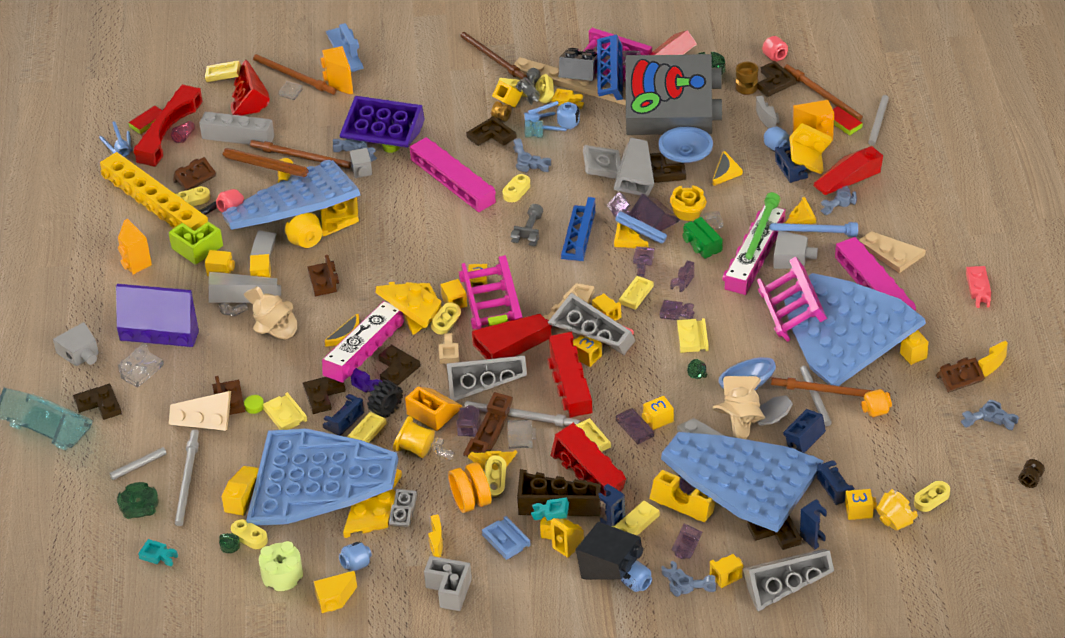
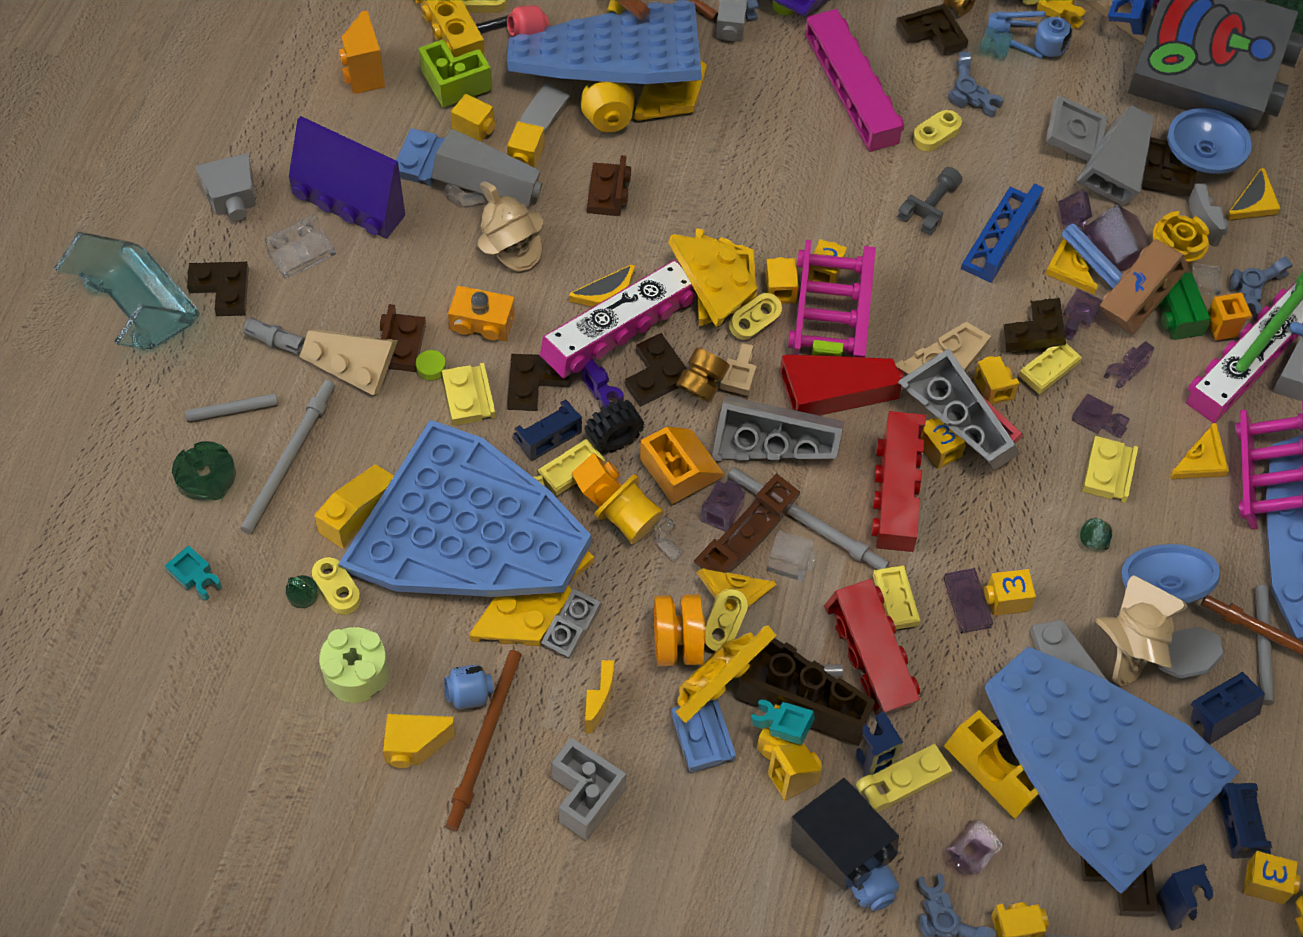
camera: 15 degrees right, 15 degrees up
(147, 417) = (274, 335): none -> light grey pin
(200, 292) = (418, 156): none -> medium blue plate
(274, 366) = (481, 313): none -> light orange piece
(376, 610) = (463, 795): none -> dark orange bar
(386, 428) = (597, 479): none -> light orange brick
(427, 357) = (703, 374): none -> pearl gold wheel
(501, 500) = (727, 662): none -> yellow wing
(624, 273) = (1041, 332): none -> dark brown plate
(675, 231) = (1144, 286): none -> medium nougat brick
(703, 183) = (1202, 206): none -> light grey slope
(731, 233) = (1228, 315): none -> light orange brick
(741, 212) = (1253, 280): none -> sand blue piece
(745, 313) = (1204, 458): none -> yellow tile

